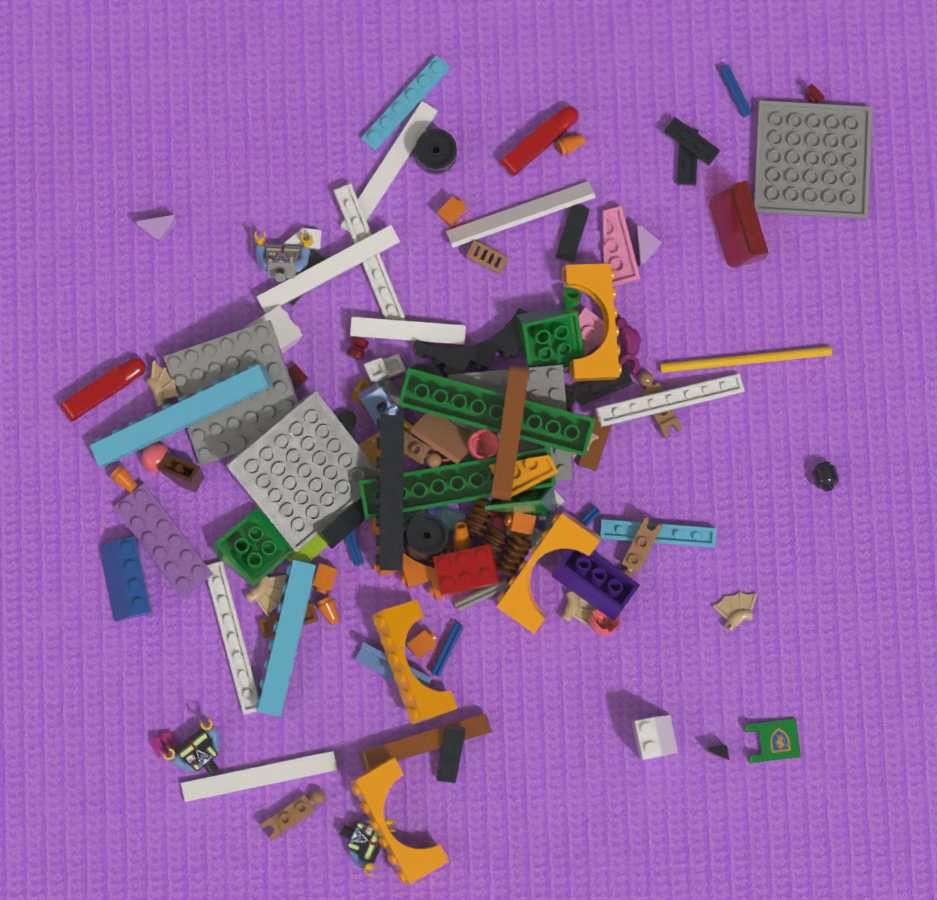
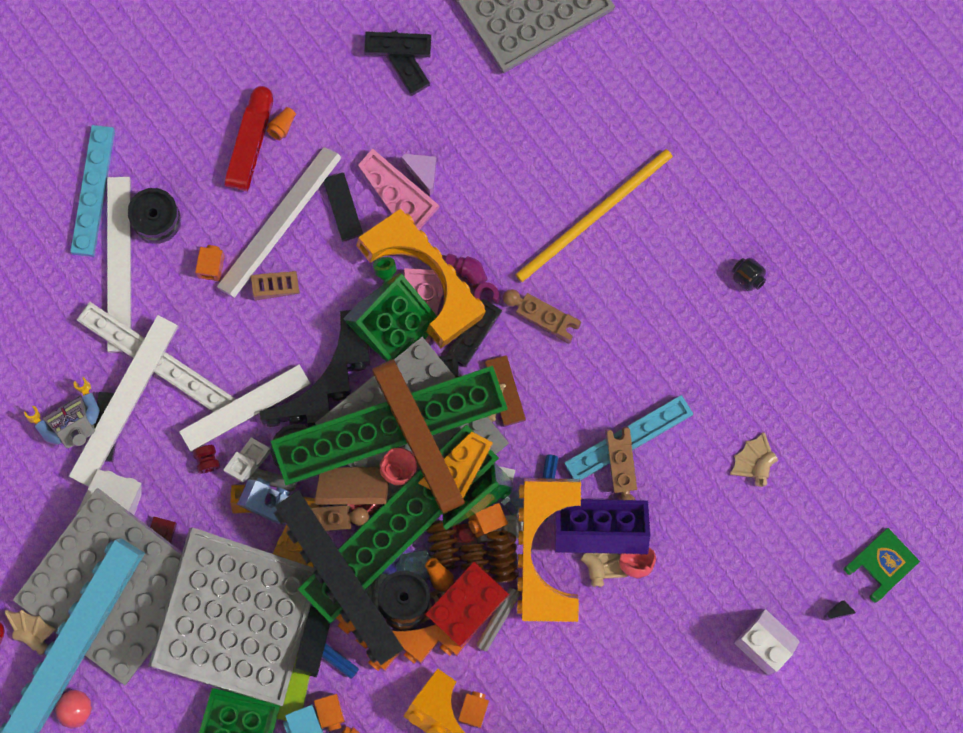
camera: 35 degrees left, 5 degrees down
(182, 472) = (110, 705): reddish brown slope -> none
(296, 238) = (72, 393): white slope -> none
(347, 419) = (245, 536): black plate -> none
(447, 649) = (501, 698): blue axle -> none
(669, 400) = (548, 302): white tile -> none
(738, 226) = (498, 92): clear red windscreen -> none

